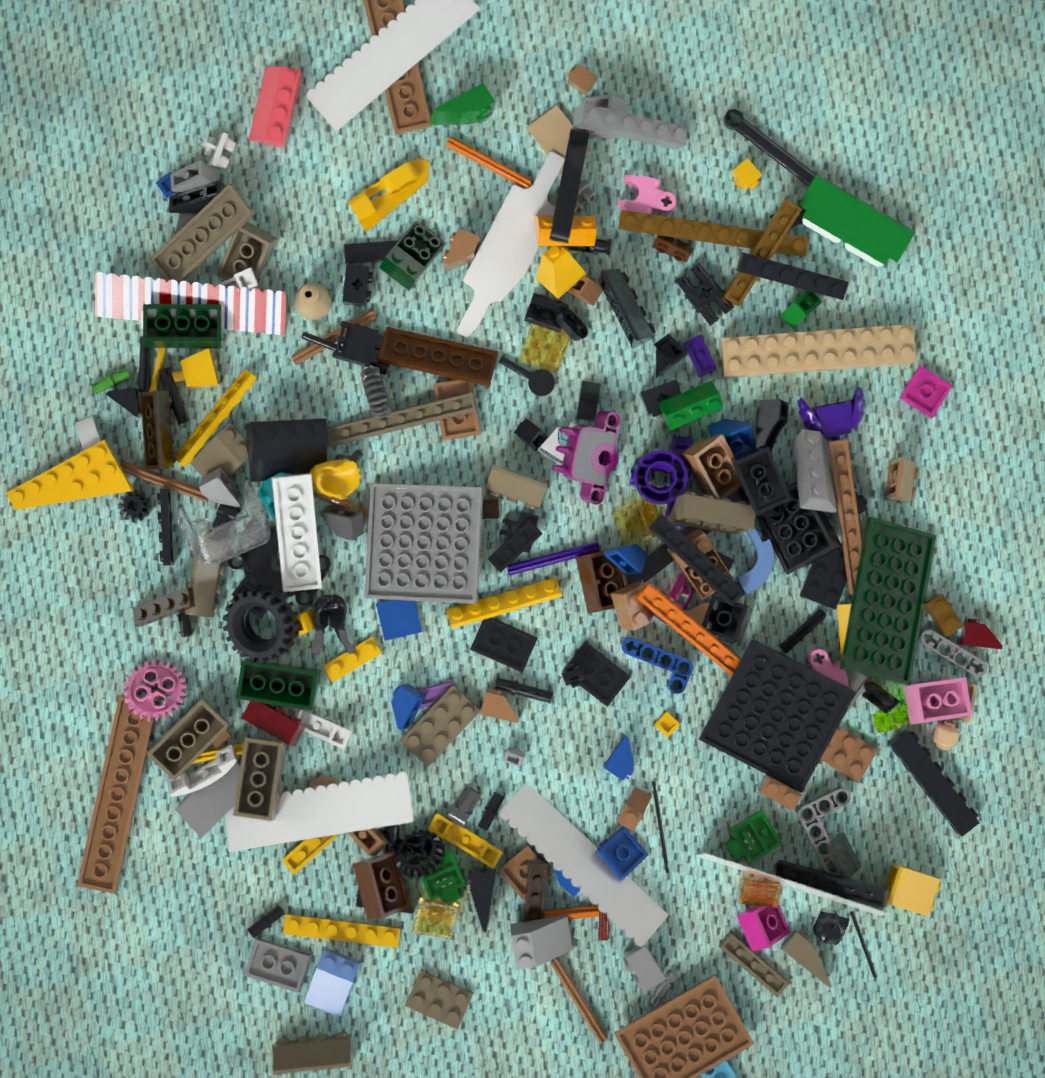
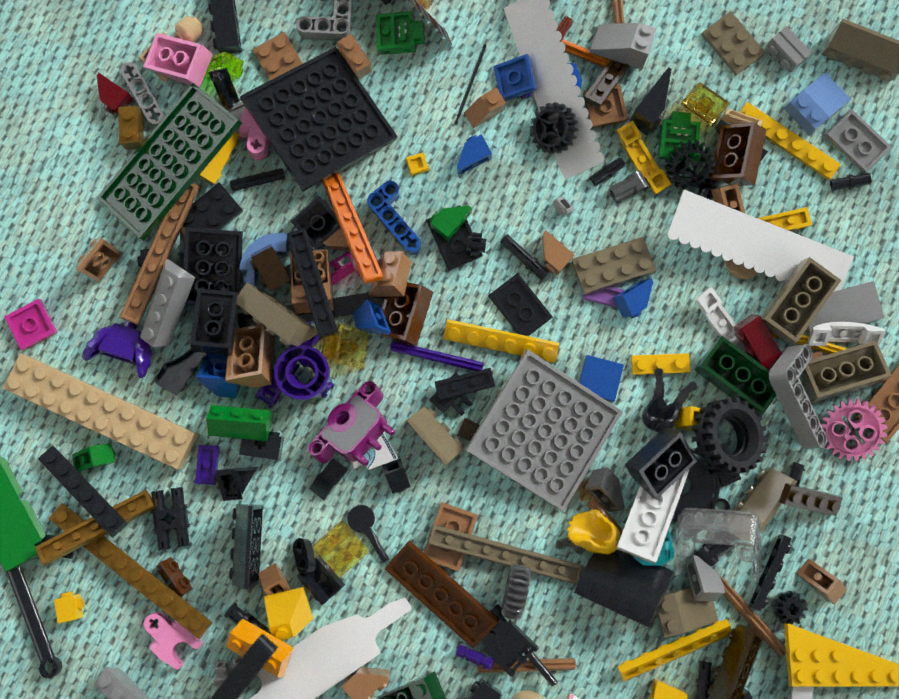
camera: 145 degrees left, 5 degrees down
(118, 543) = (822, 581): none -> medium nougat slope
(222, 686) = (793, 398): none -> light grey beam
(309, 568) = (661, 462): none -> black slope
(381, 320) = (474, 657): none -> dark purple axle
(384, 1018) = (788, 49): none -> light grey brick
(393, 924) = (736, 117): none -> tan tile
(554, 824) = (544, 130): none -> black gear
(608, 685) = (449, 220): none -> green slope
(742, 555) = (270, 267): none -> dark brown brick

